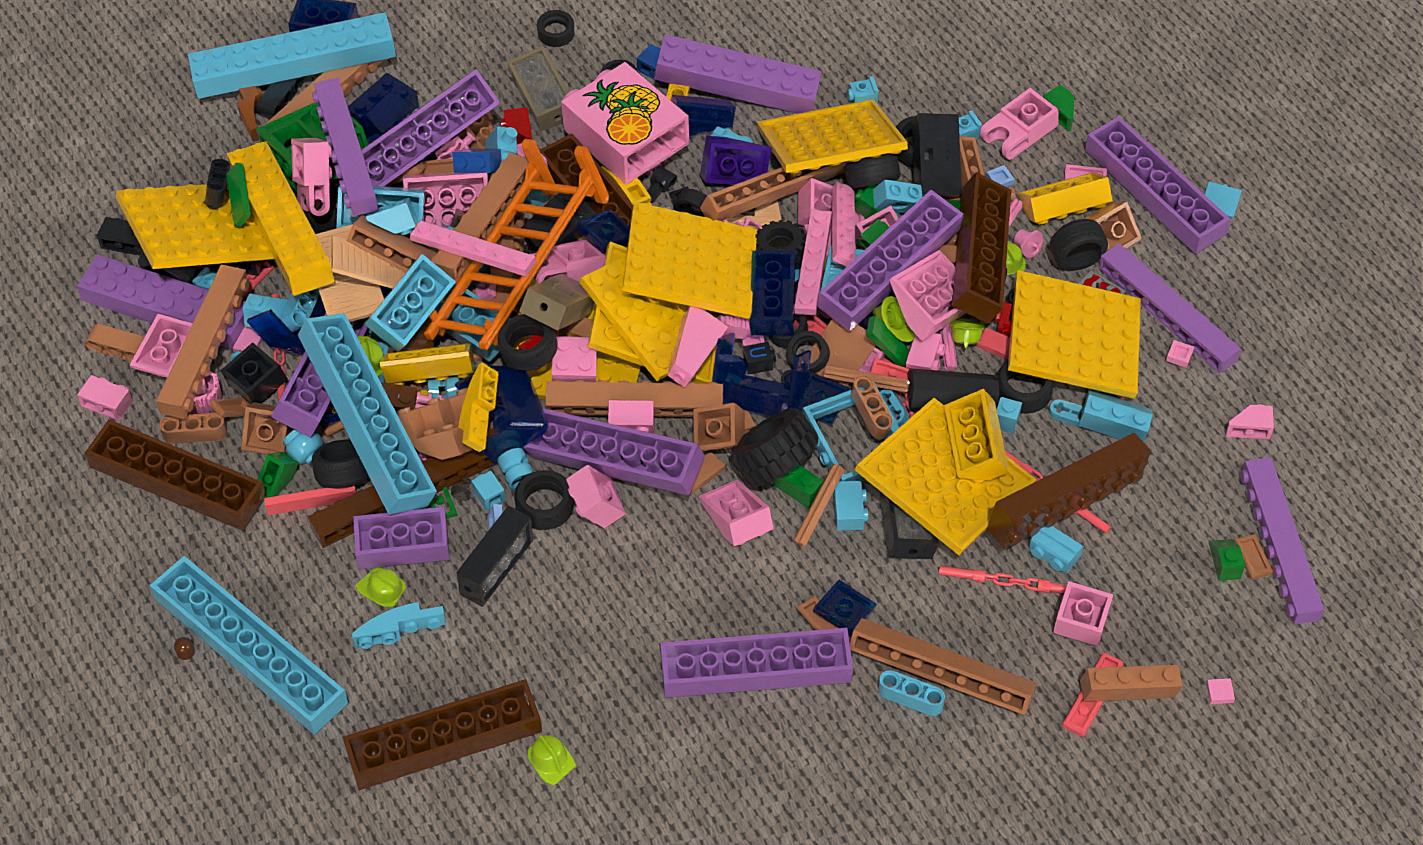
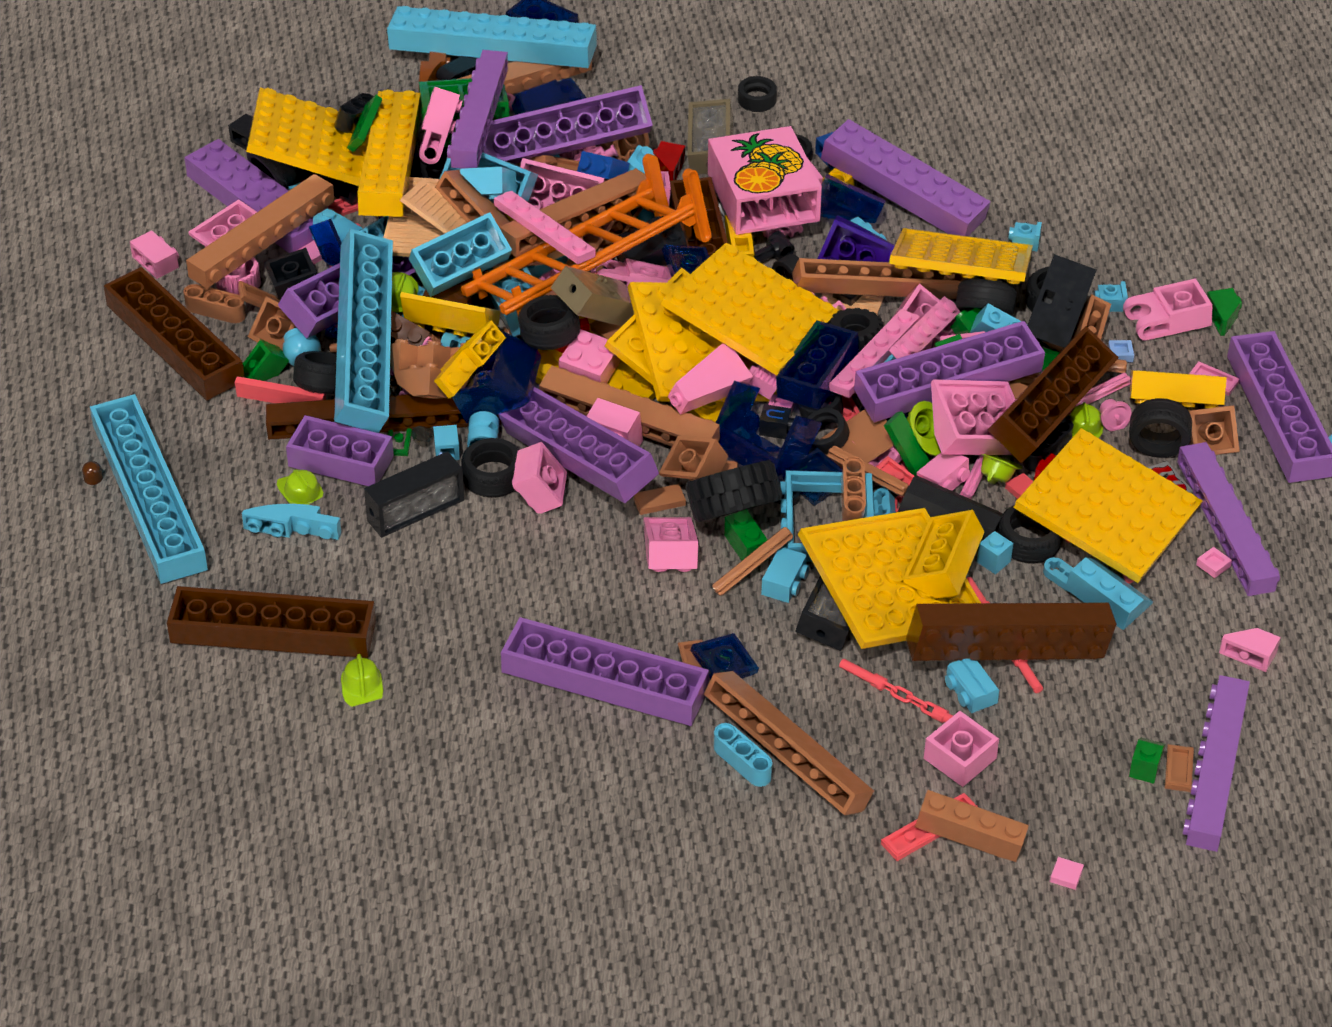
camera: 25 degrees right, 10 degrees down
(113, 341) = (187, 211): nougat beam -> none

